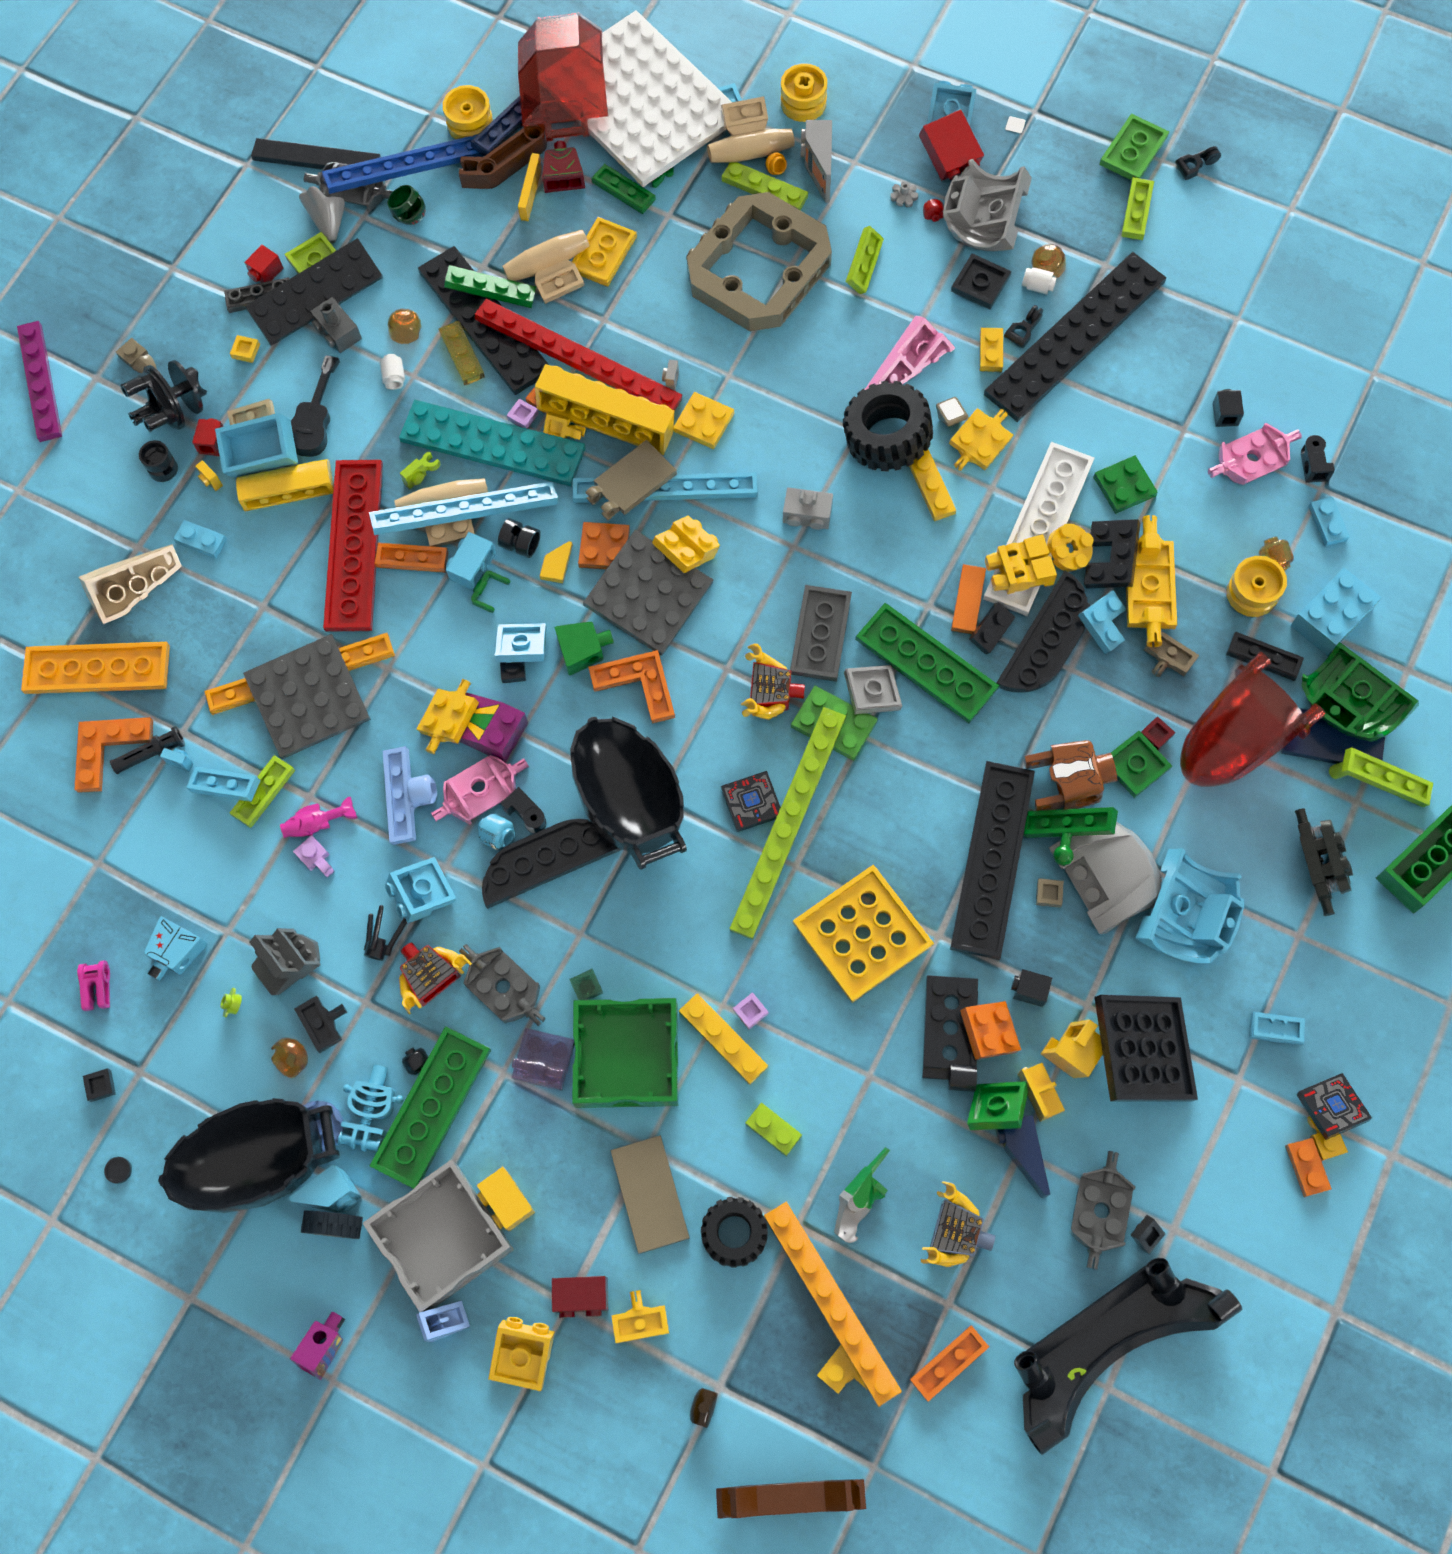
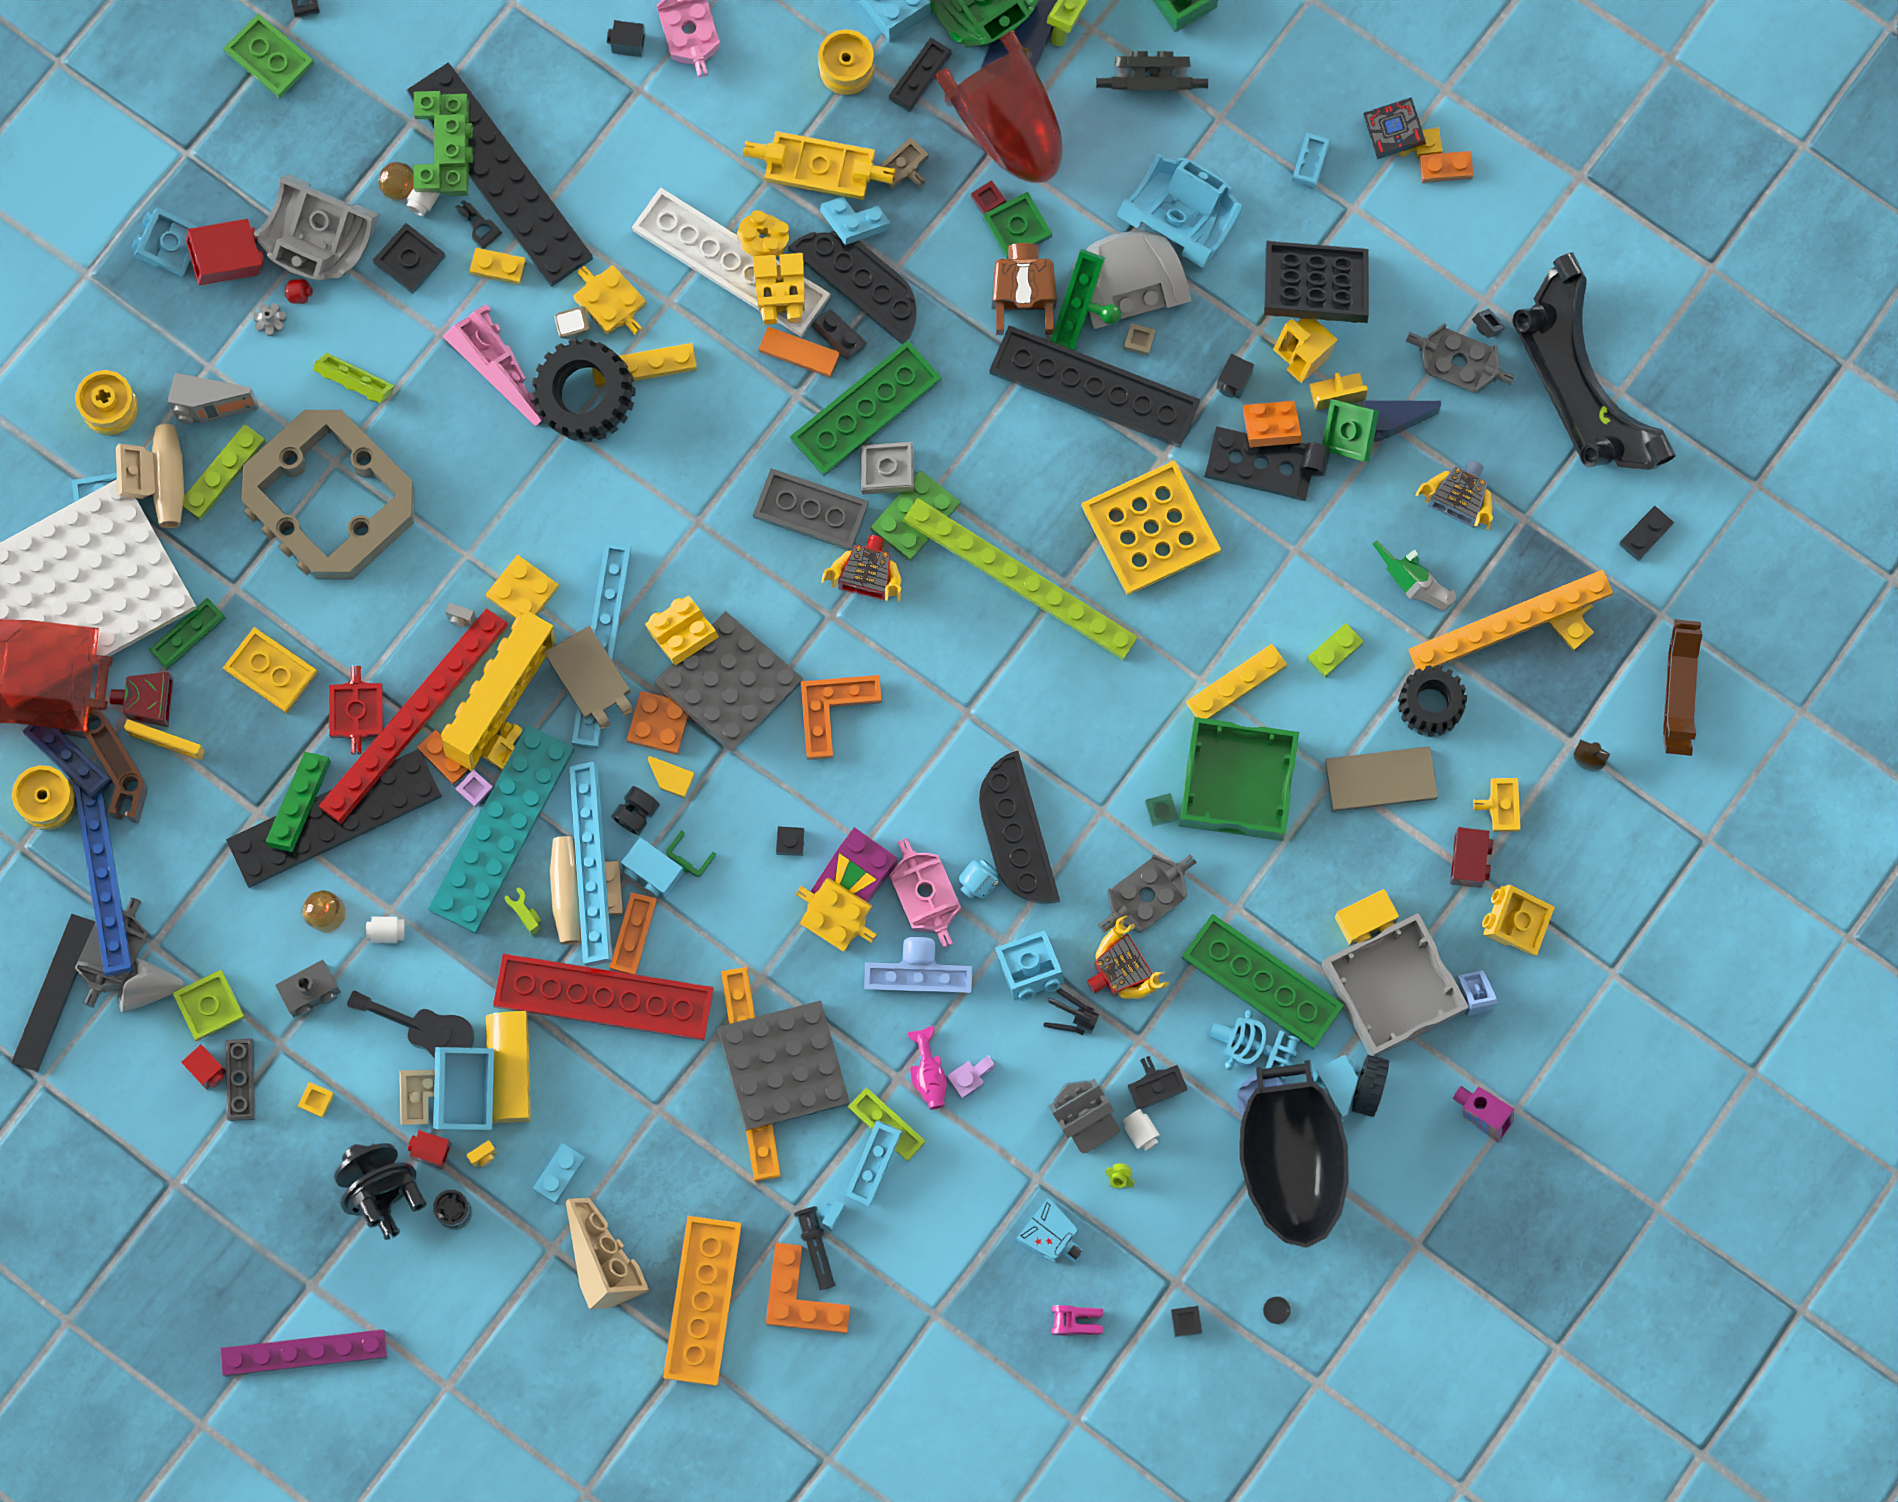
camera: 85 degrees left, 5 degrees up
(135, 355) = (297, 1232): dark tan plate -> none
(275, 1015) = (1141, 1130): none -> white brick
(289, 1057) = (1190, 1118): clear orange hair -> none
(335, 276) = (256, 1009): black plate -> none
(406, 205) = (162, 884): dark green helmet -> none
(414, 1060) = (1209, 994): black piece -> none
(461, 353) = (374, 849): clear yellow plate -> none
(520, 643) = (765, 824): plate -> none
(525, 809) = (964, 841): black leg -> none
(543, 1059) = (1231, 862): clear purple plate -> none
(550, 265) = (282, 729): tan plate -> none
(577, 315) = (355, 710): none -> red plate
(581, 645) = (778, 762): green torso -> none
(628, 789) = (966, 726): black windscreen -> none
(750, 1011) = (1213, 651): lavender plate -> none
(751, 801) = (988, 614): black tile -> none
(776, 163) = (195, 453): light orange plate -> none
(807, 508) = (660, 496): light grey brick -> none
(949, 1363) = (1580, 526): orange plate -> none
(958, 1437) = (1646, 533): none -> black plate
(1015, 124) = (200, 178): white sticker -> none
(1088, 285) = (451, 143): none -> bright green bracket
(1123, 538) = (764, 178): black plate -> none
(1125, 484) = (694, 164): green plate -> none
(1137, 208) = (351, 71): lime plate -> none
(1278, 550) = (810, 33): clear orange head -> none

